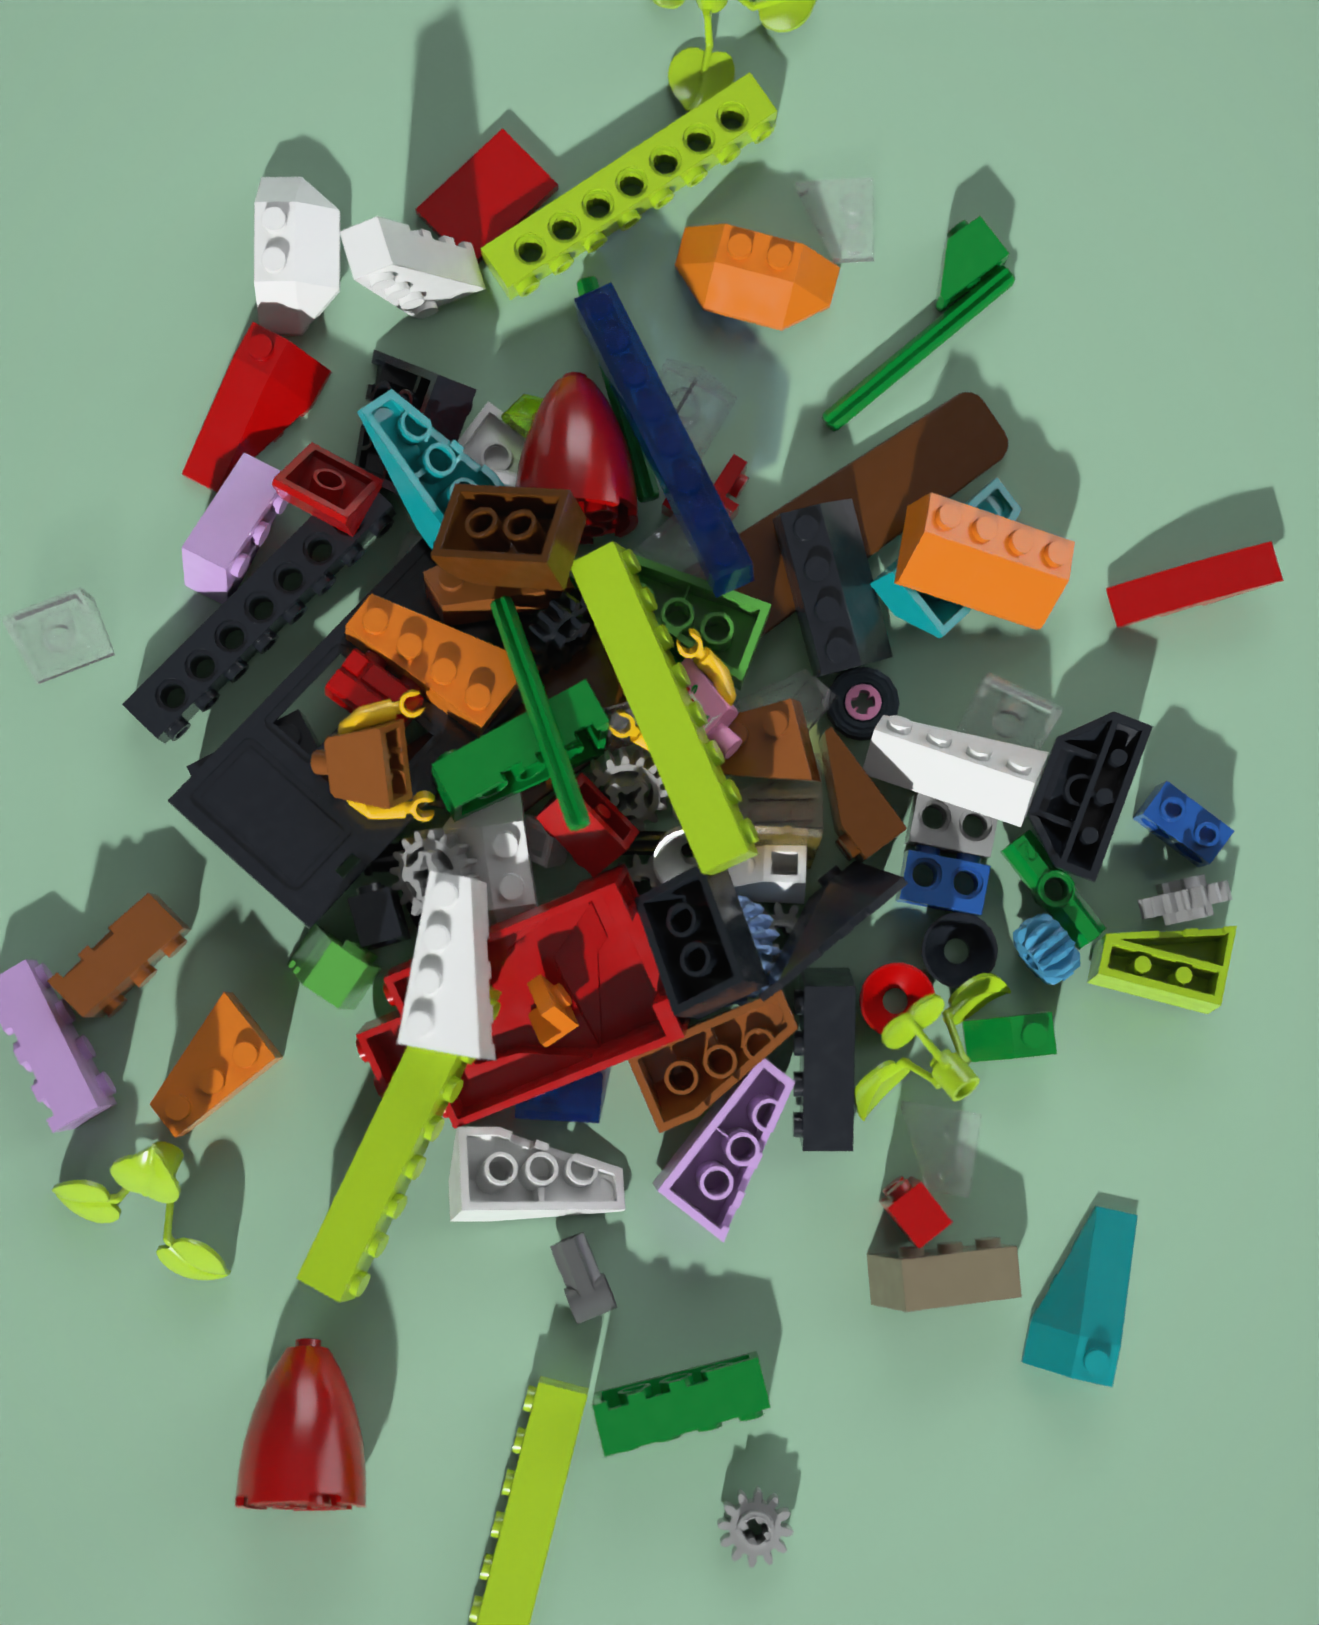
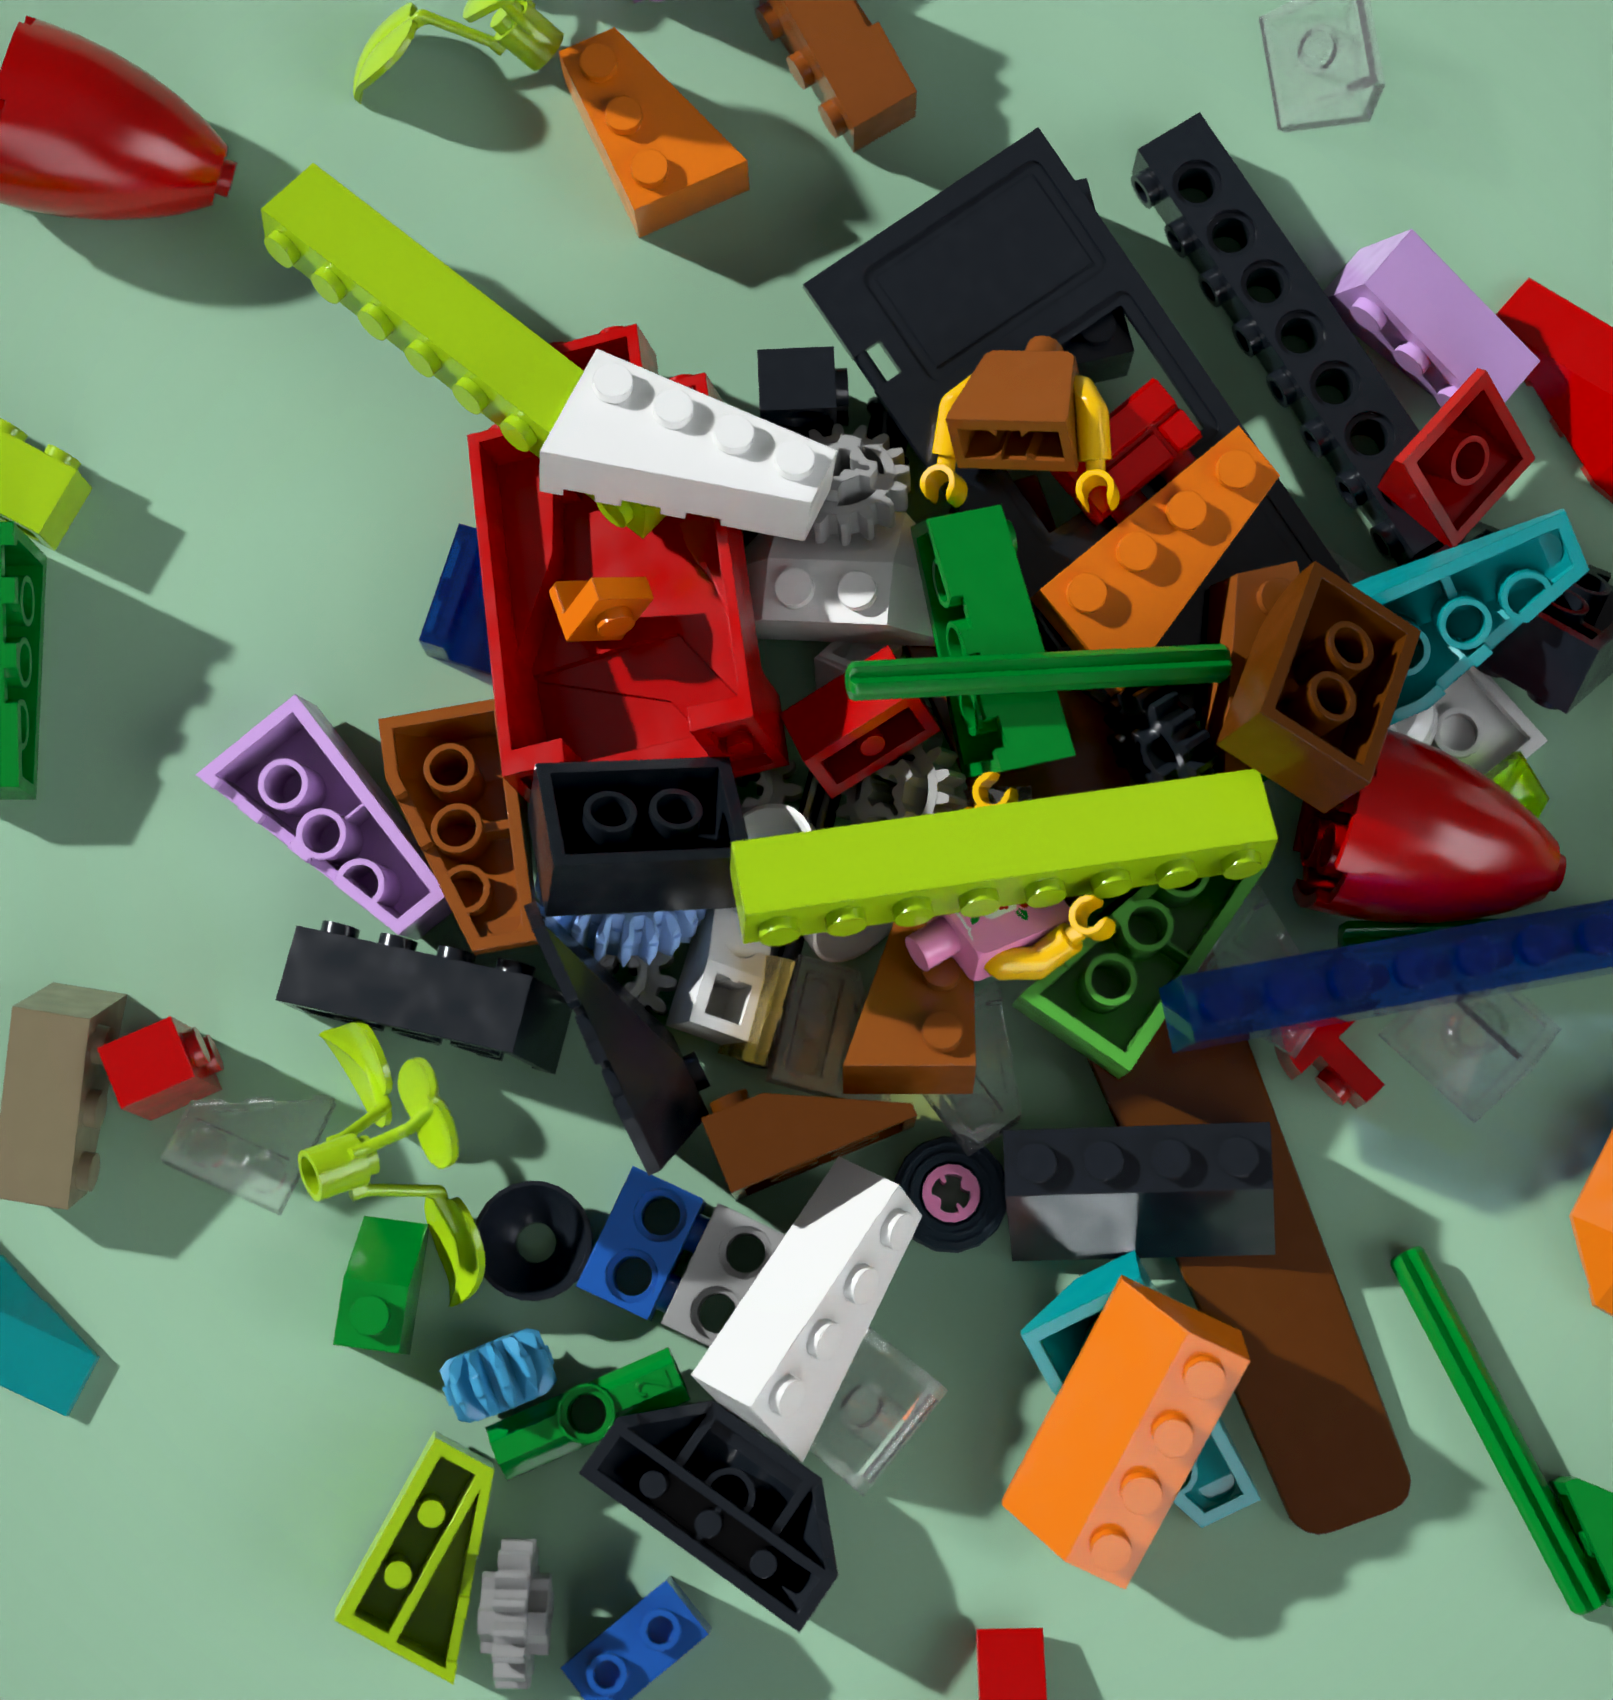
camera: 110 degrees right, 5 degrees down
(334, 969) = (730, 312): bright green wedge -> none
(519, 1178) = (374, 515): white wedge -> none
(585, 1285) = (190, 575): dark grey piece -> none
(892, 975) = (496, 1091): red piece -> none

